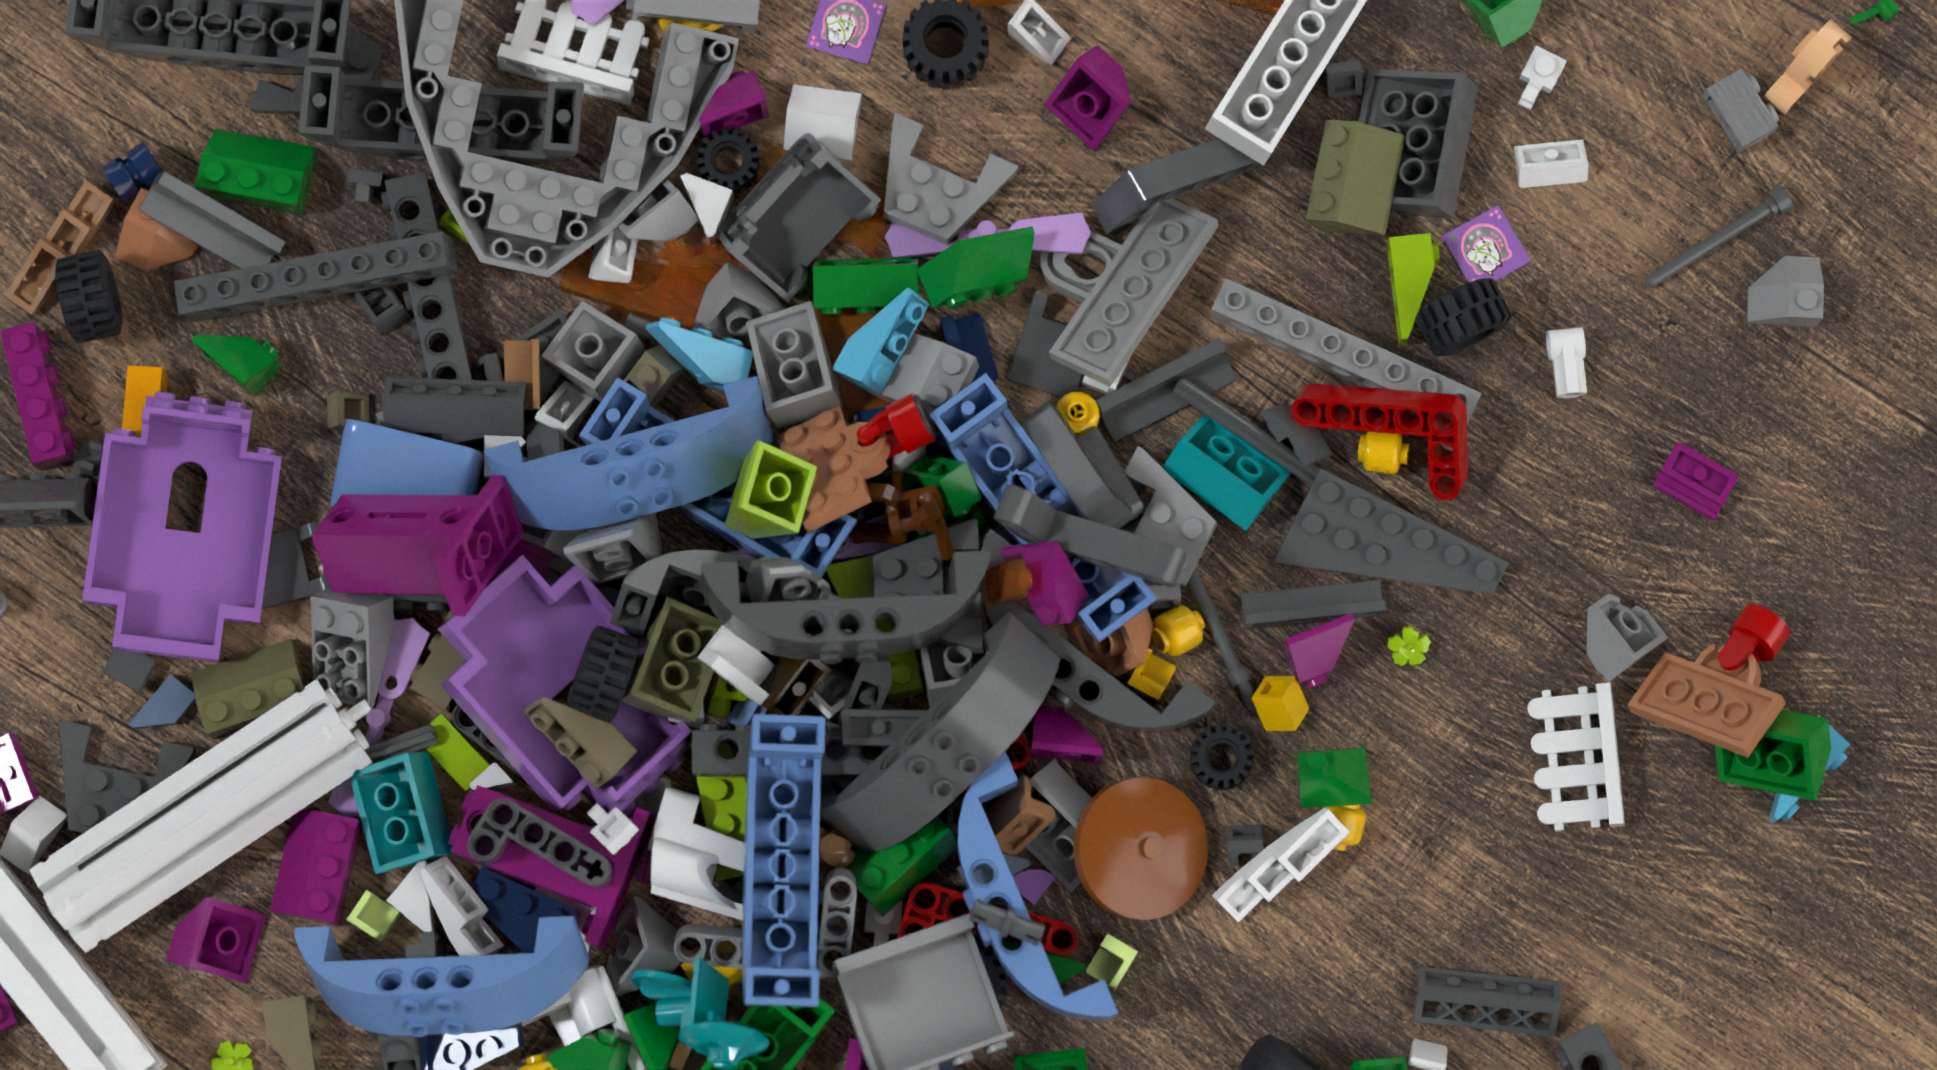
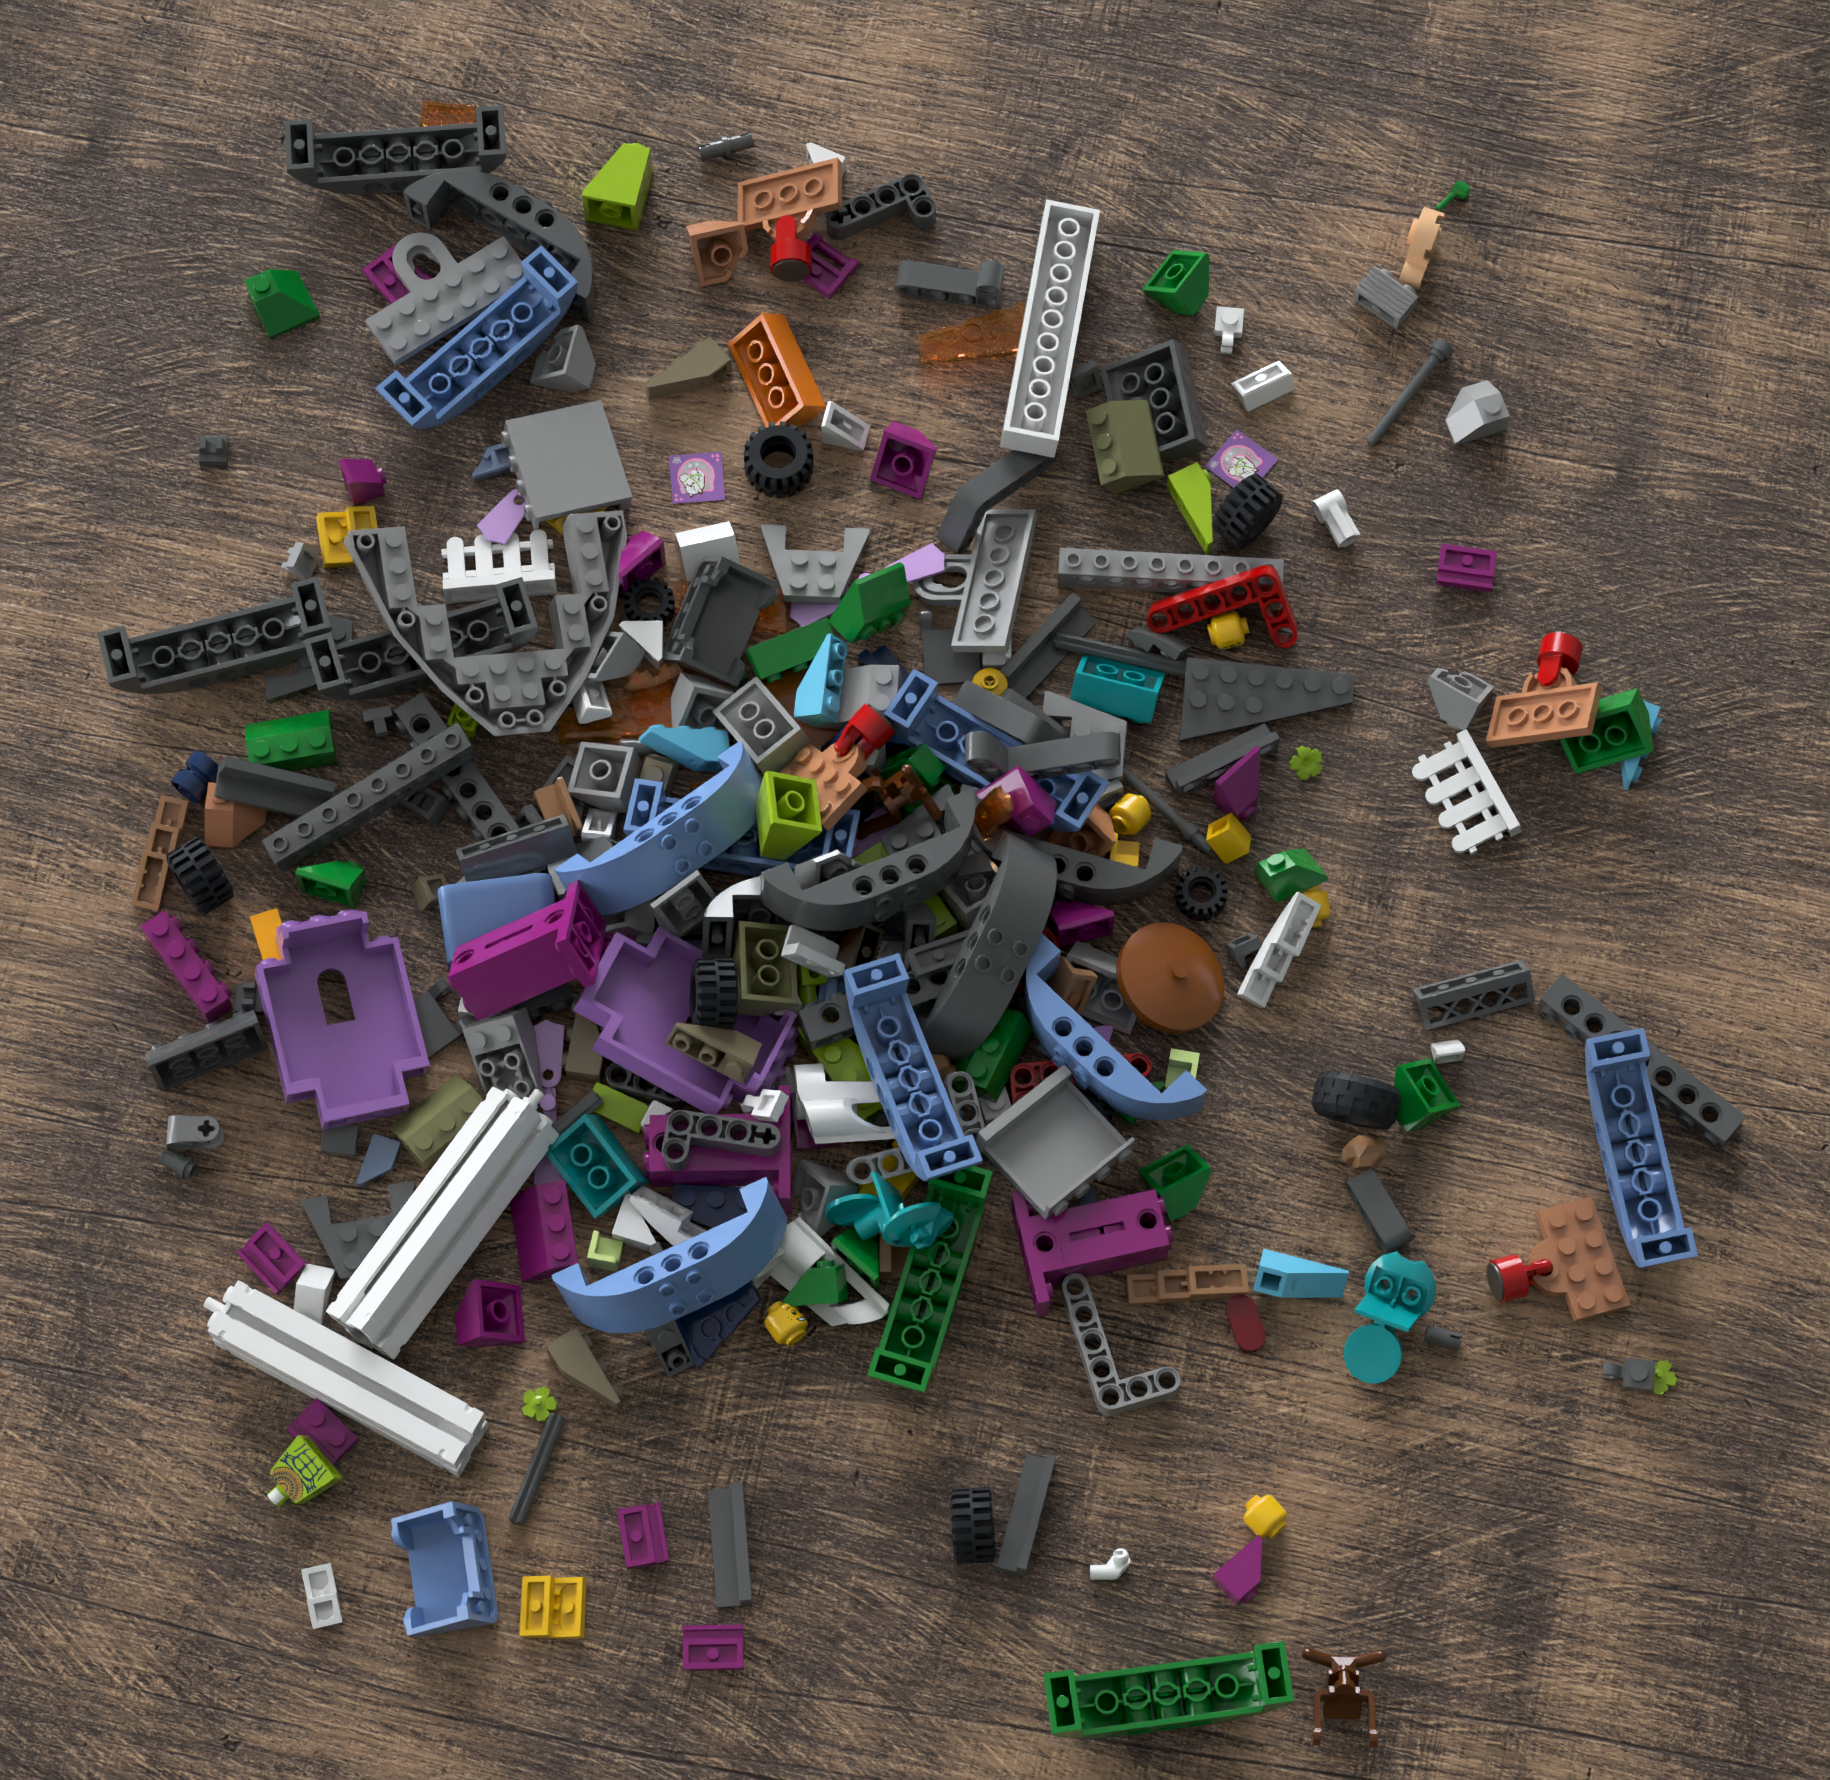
camera: 25 degrees left, 10 degrees down
(1007, 922) = (1097, 1053): dark grey pin -> none

